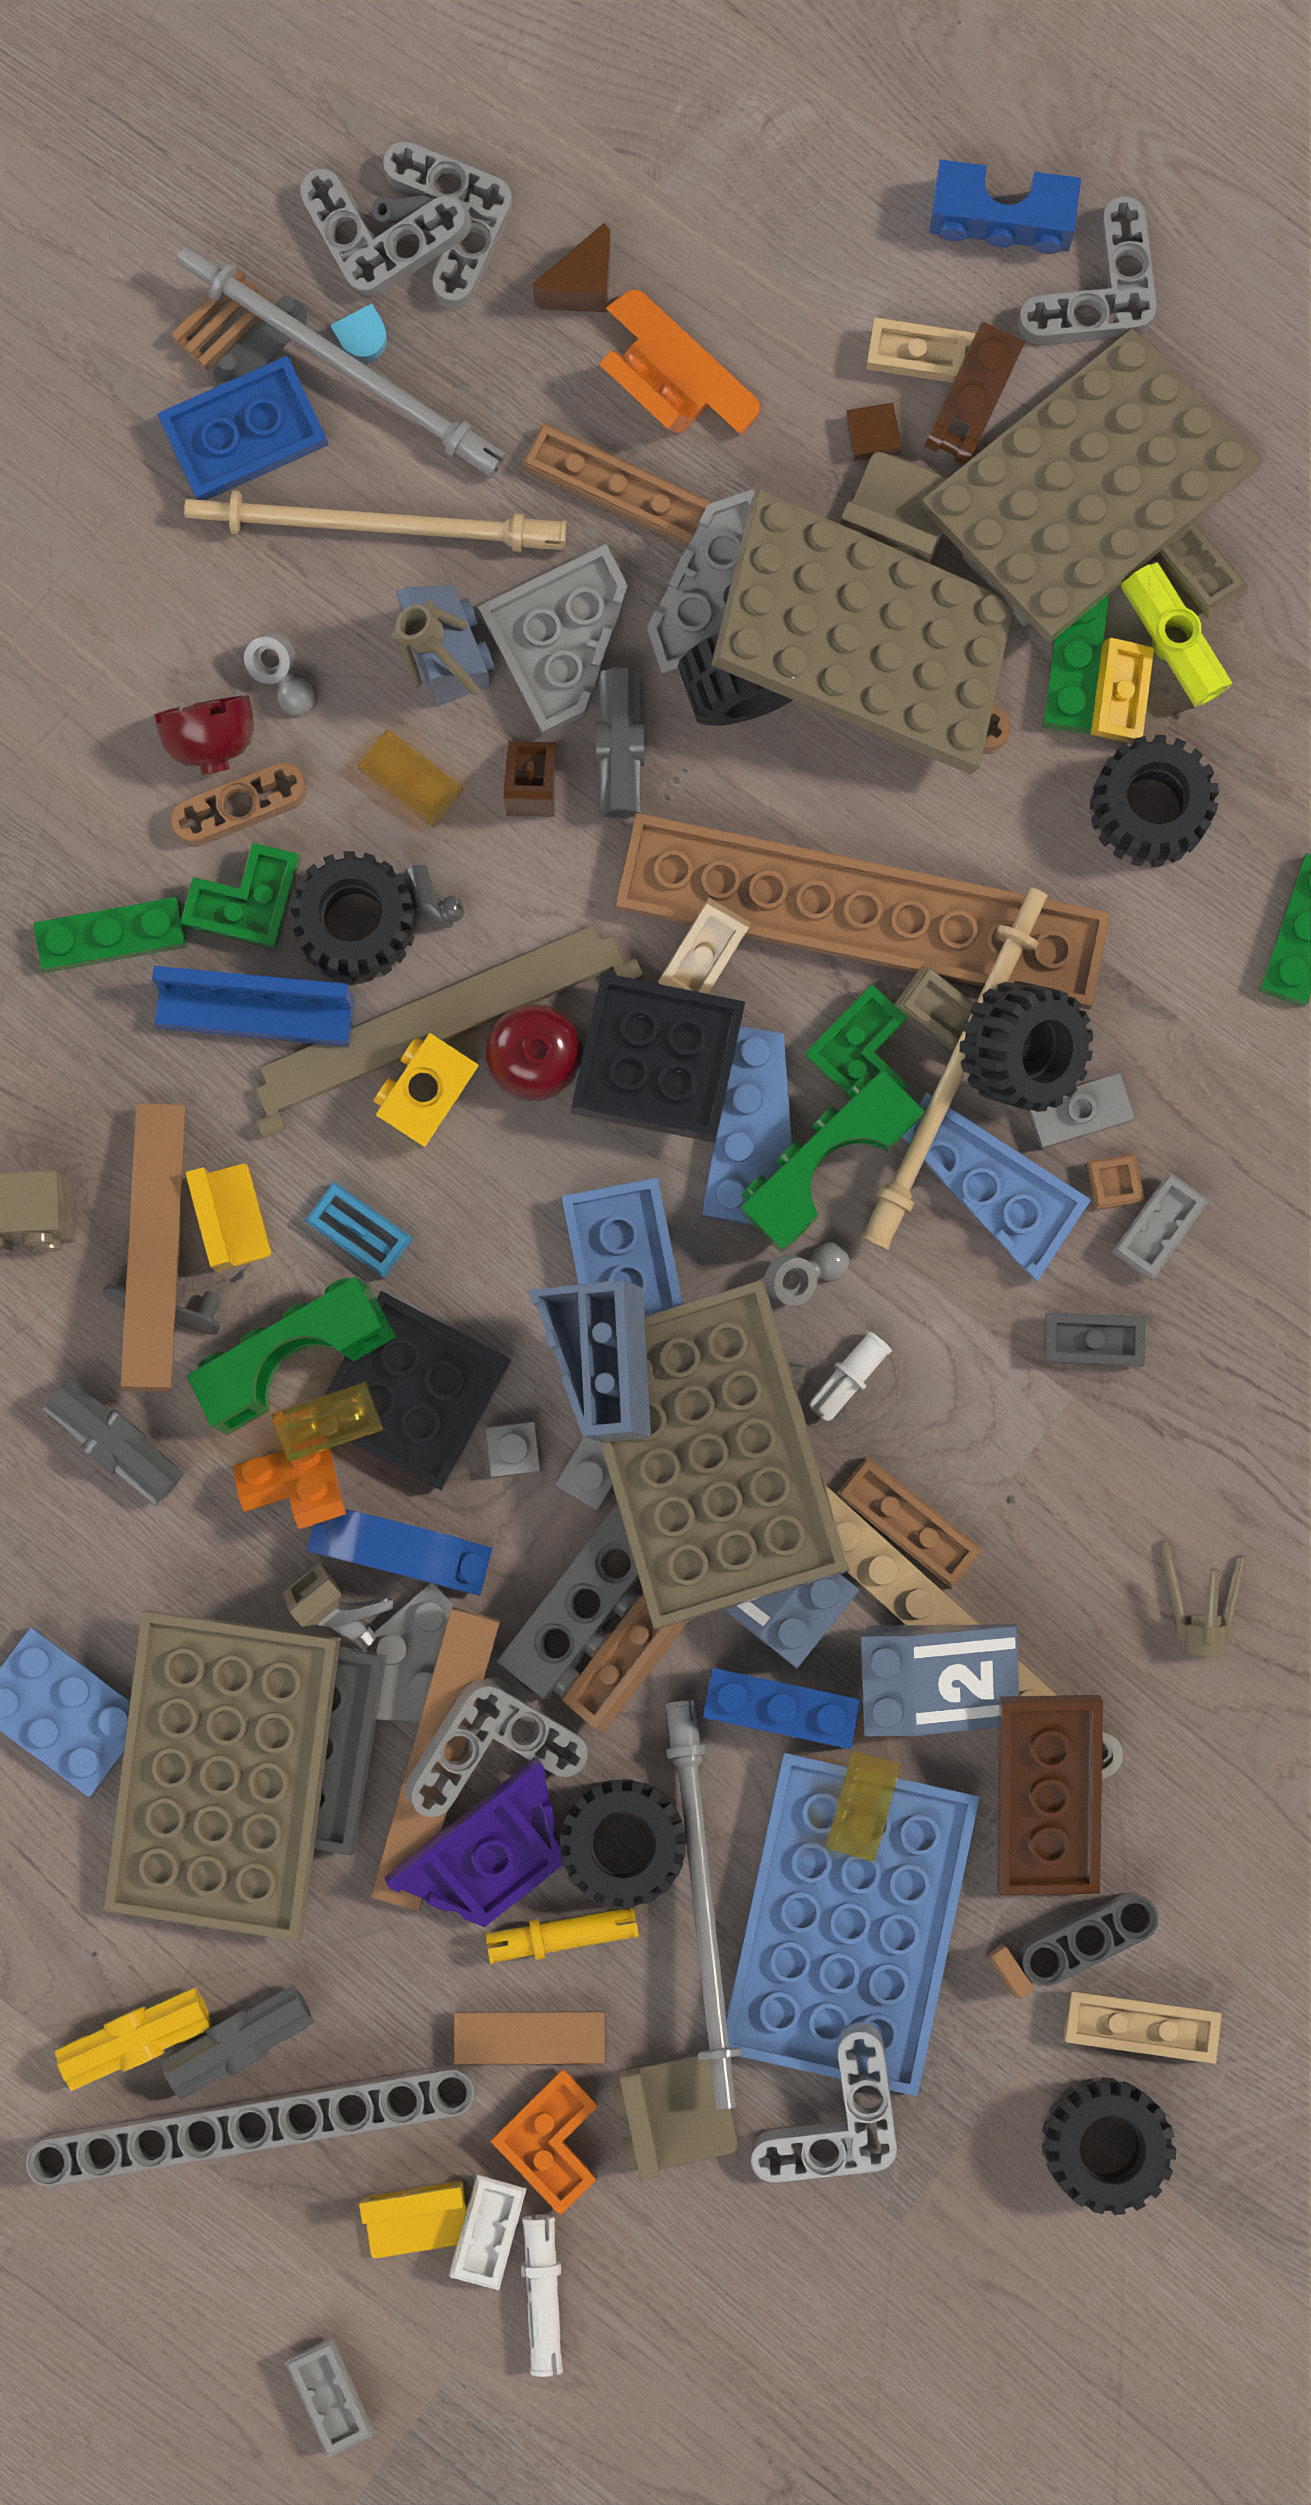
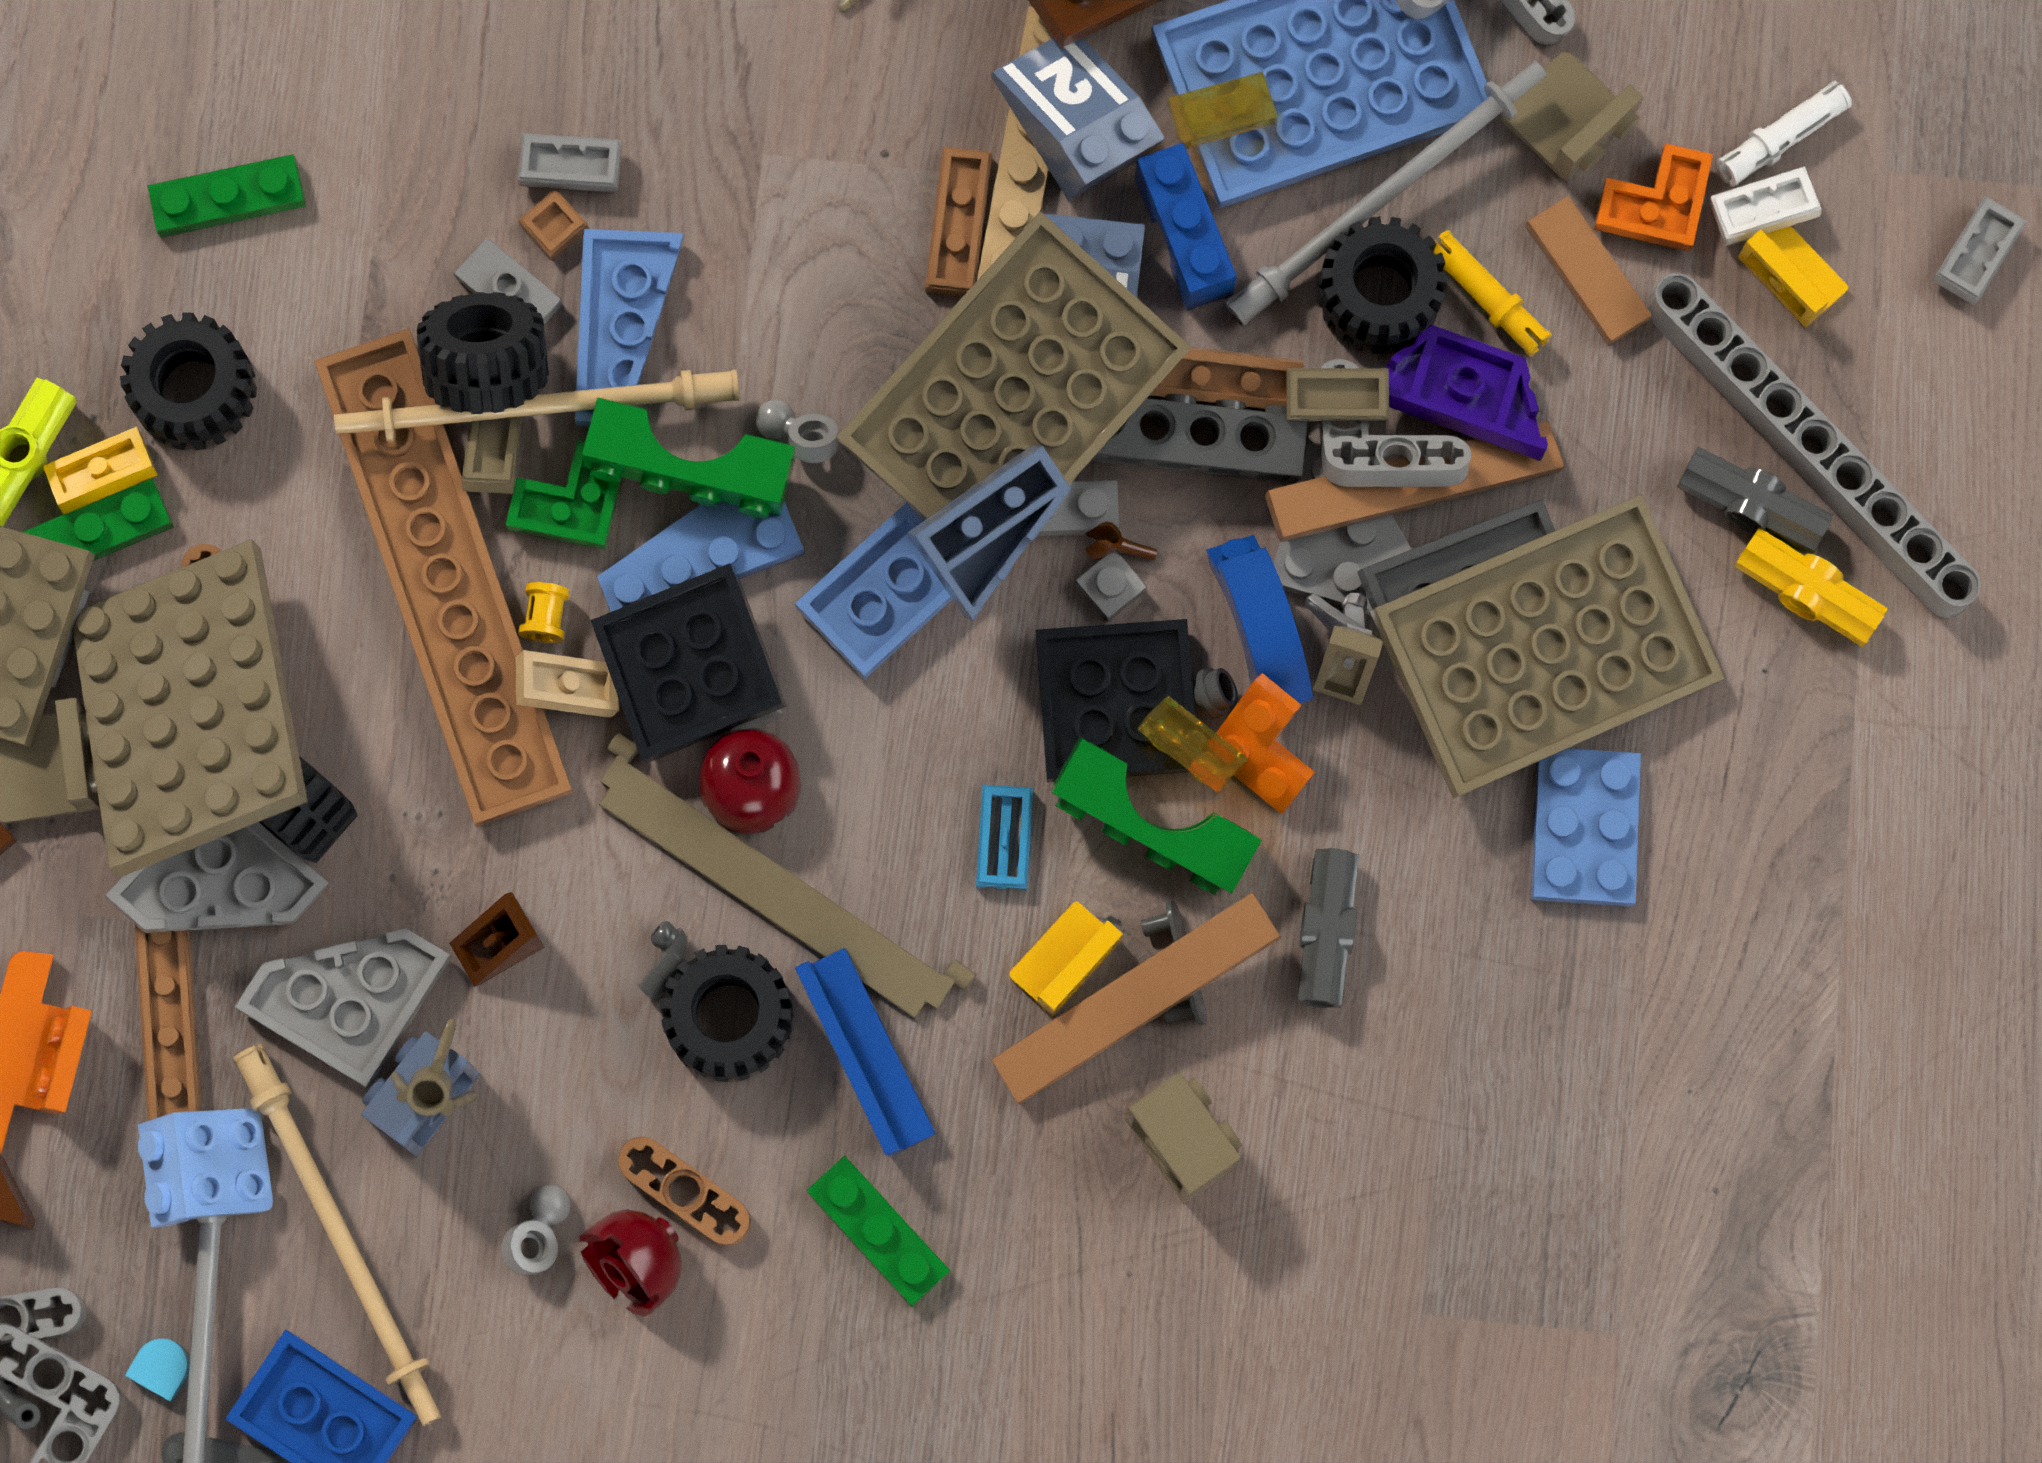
camera: 125 degrees left, 5 degrees down
(249, 912) = (771, 1110): green plate -> none
(366, 1475) = (1215, 691): none -> dark grey plate
(410, 778) = (563, 1052): clear yellow plate -> none
(449, 1070) = (867, 834): yellow brick -> none
(491, 449) = (204, 1165): none -> light blue bracket
(542, 1733) = (1337, 394): none -> dark tan tile
(546, 1472) = (1109, 539): none -> reddish brown hand
(619, 743) = (416, 880): dark grey piece -> none
(779, 973) = (544, 612): none -> yellow bush
(849, 1376) = (864, 341): white axle -> none
(1094, 1340) = (704, 159): dark grey plate -> none

